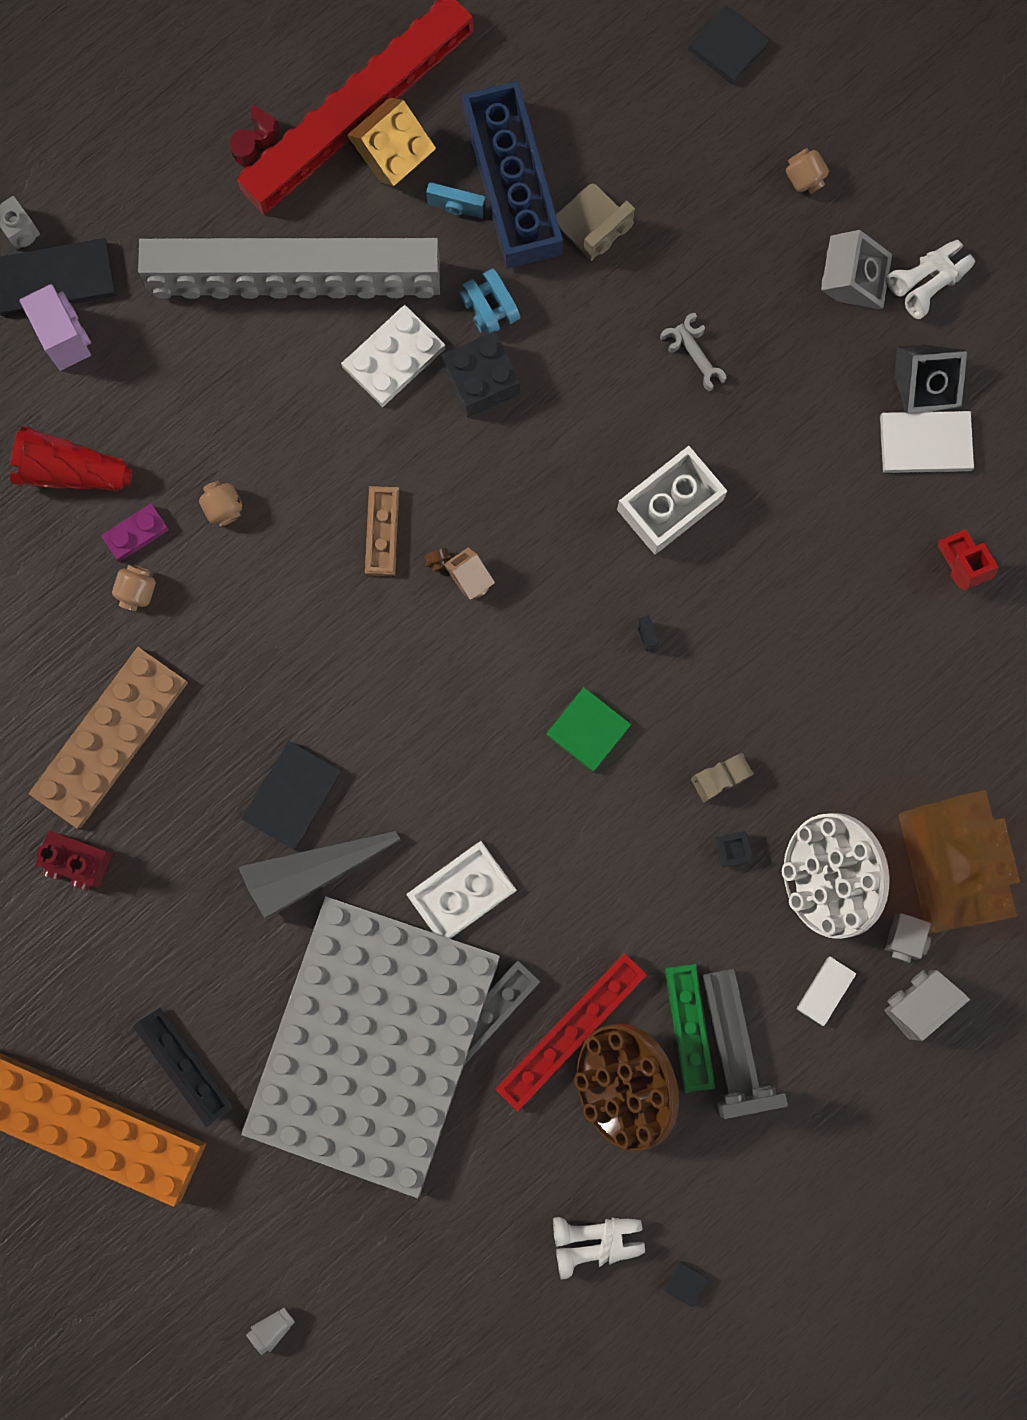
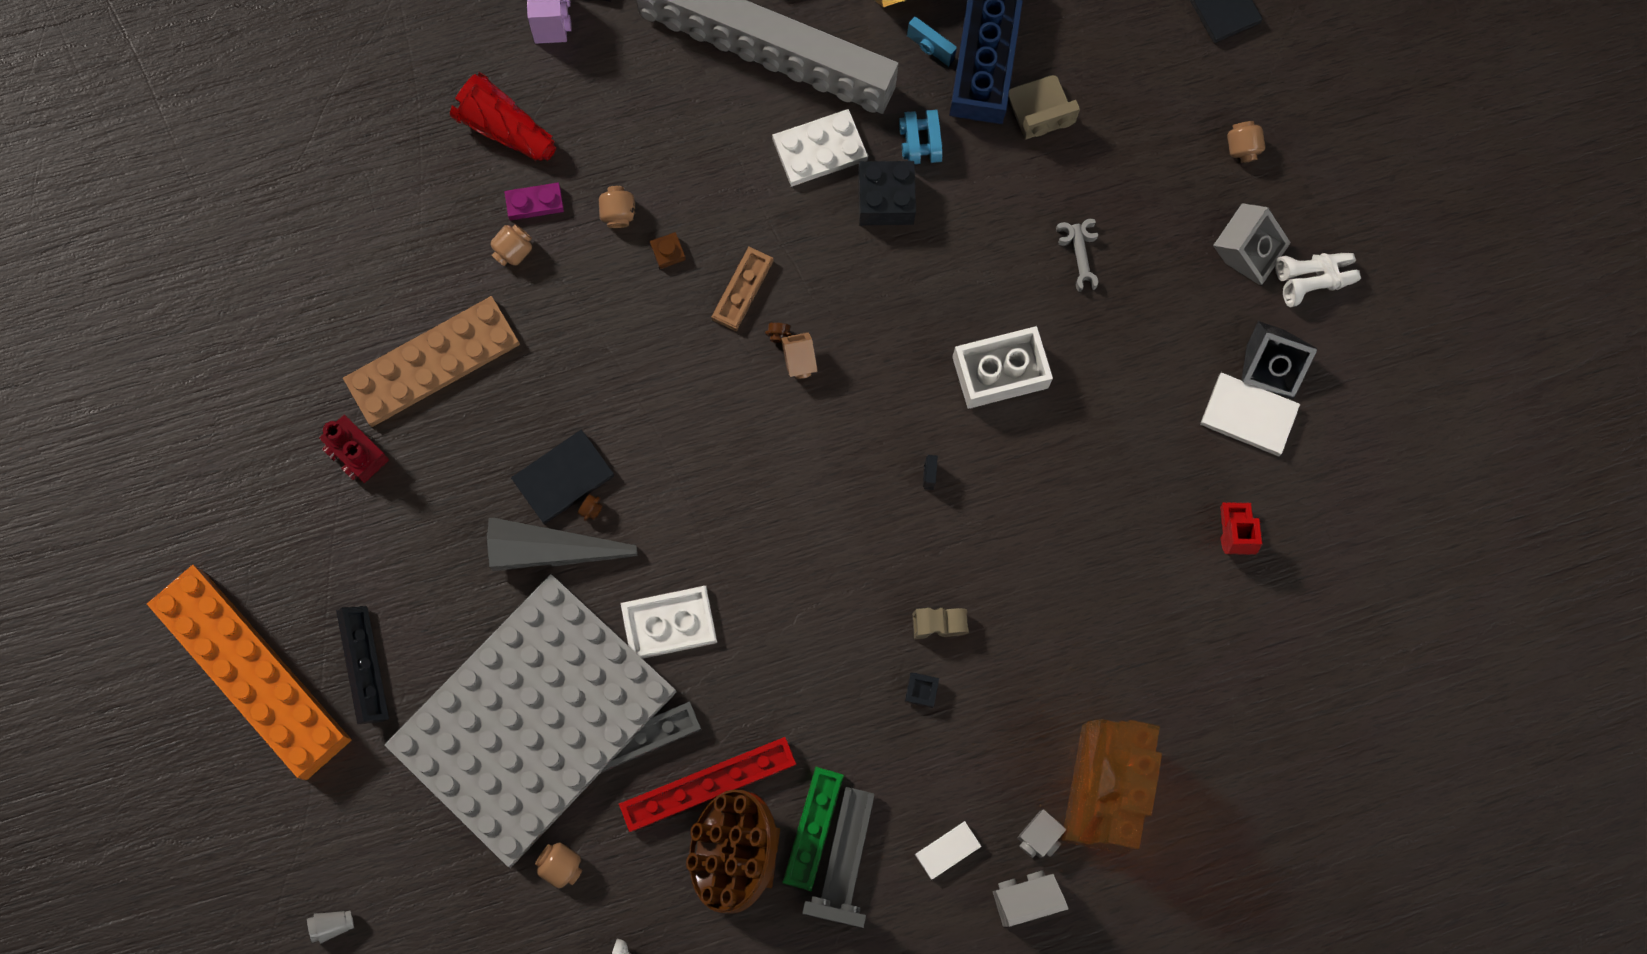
camera: 20 degrees right, 5 degrees down
(290, 524) = (667, 250): none -> reddish brown plate
(334, 814) = (590, 507): none -> reddish brown plate
(464, 1173) = (558, 865): none -> medium nougat head
(588, 729) = (842, 532): green tile -> none
(837, 875) = (1001, 749): white bracket -> none

